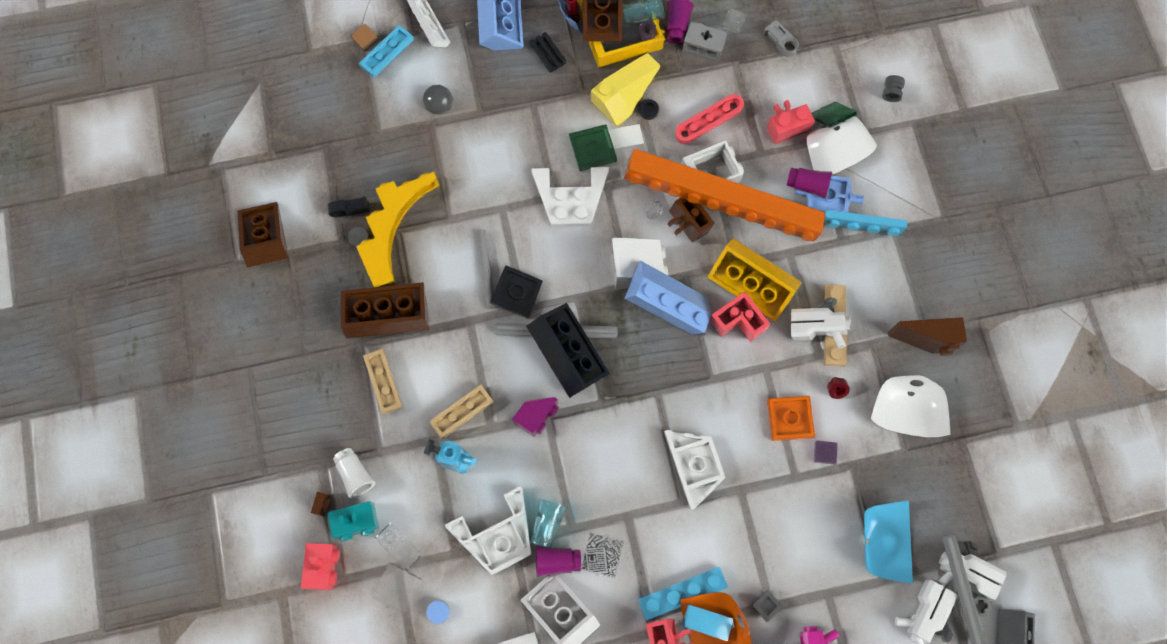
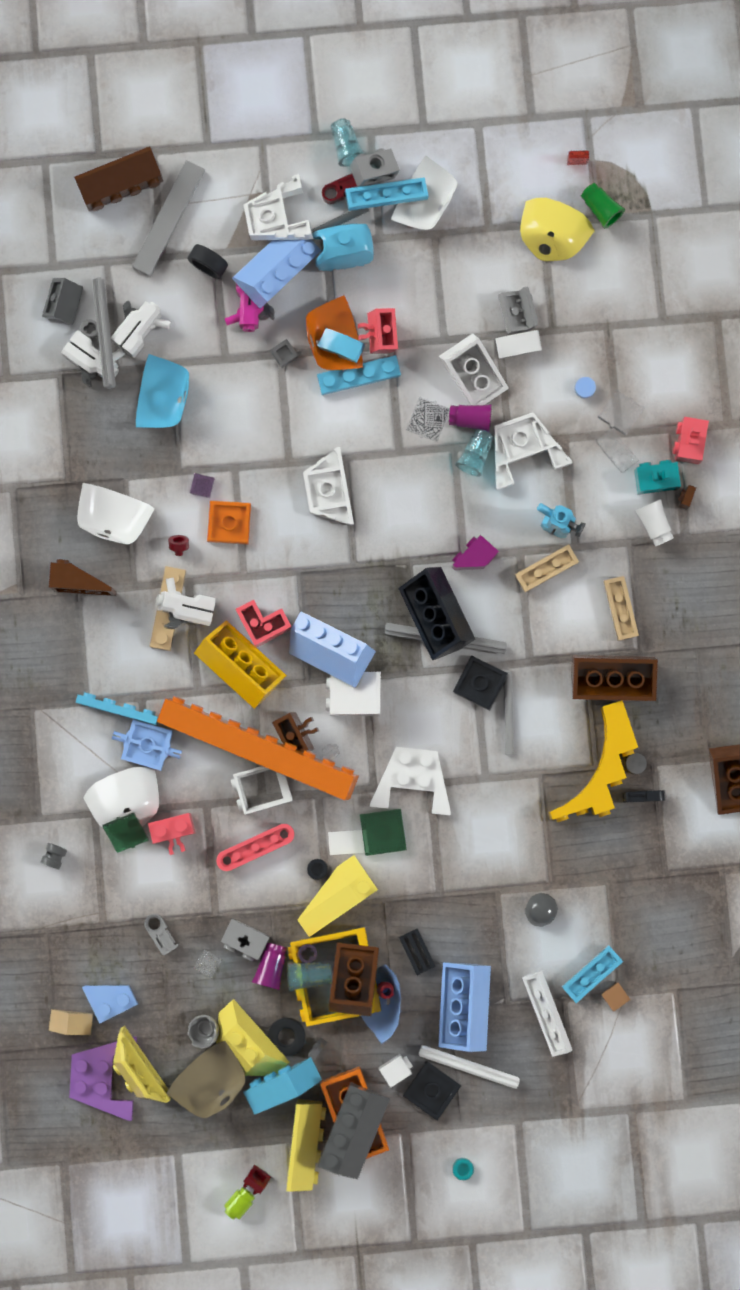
camera: 175 degrees left, 10 degrees up
(810, 181) = (166, 755): magenta plant -> none

